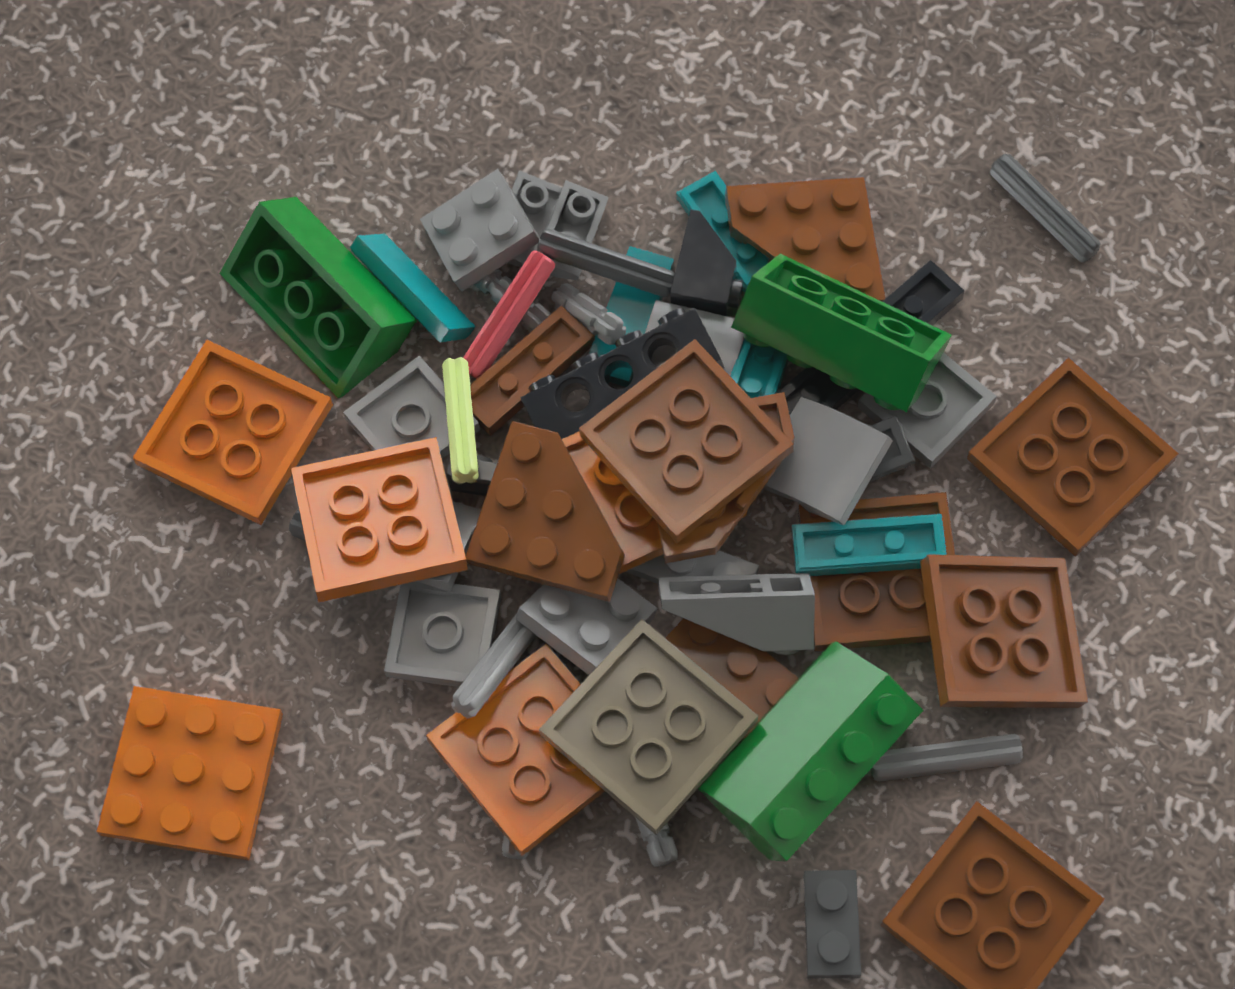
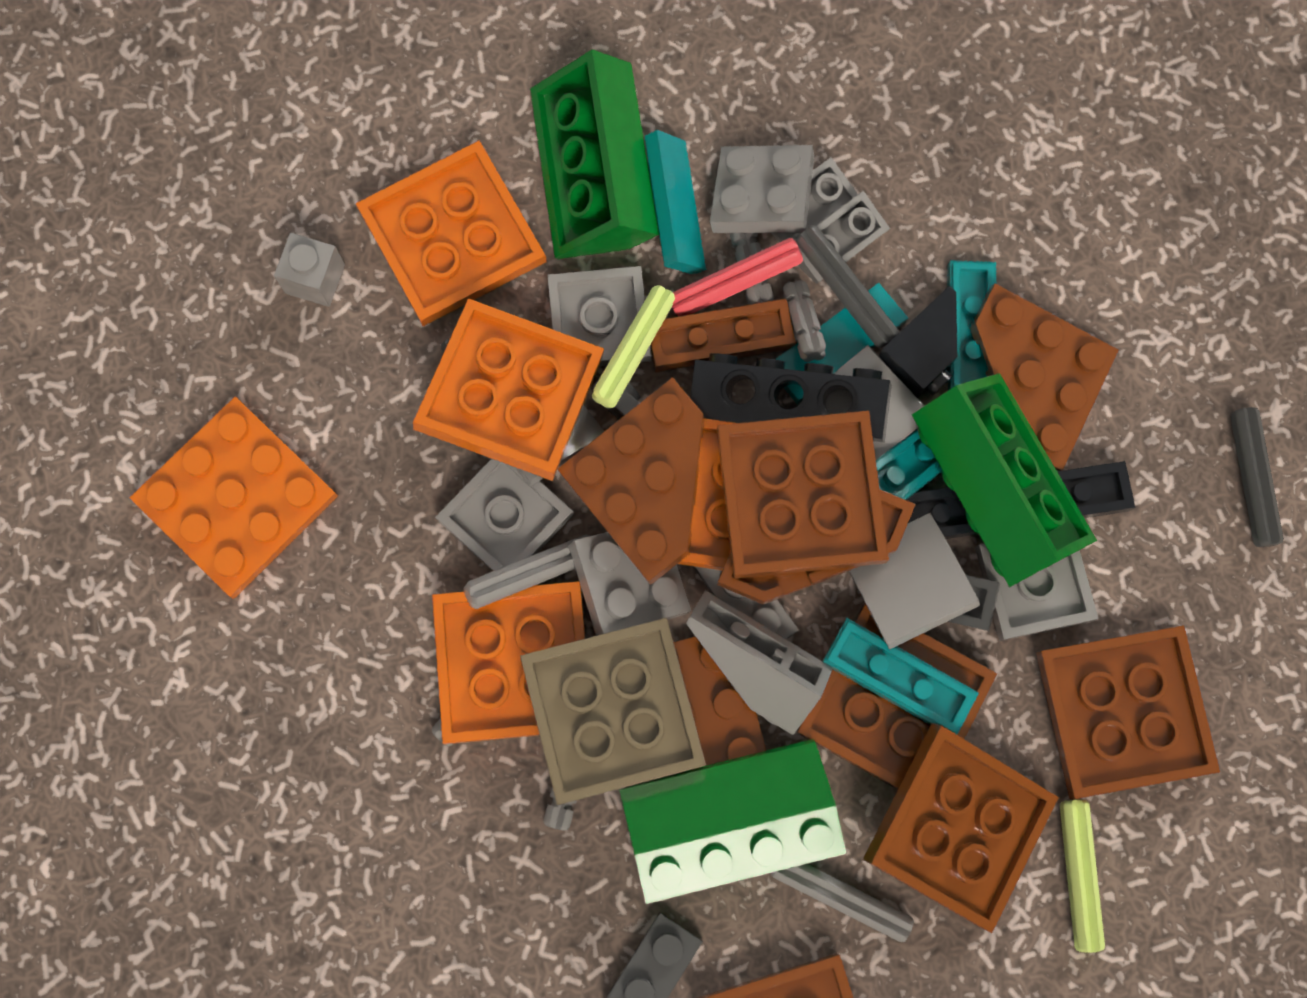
camera: 25 degrees right, 10 degrees up
(130, 537) = (309, 269): none -> light grey brick
(1128, 610) = (1082, 876): none -> yellowish green axle

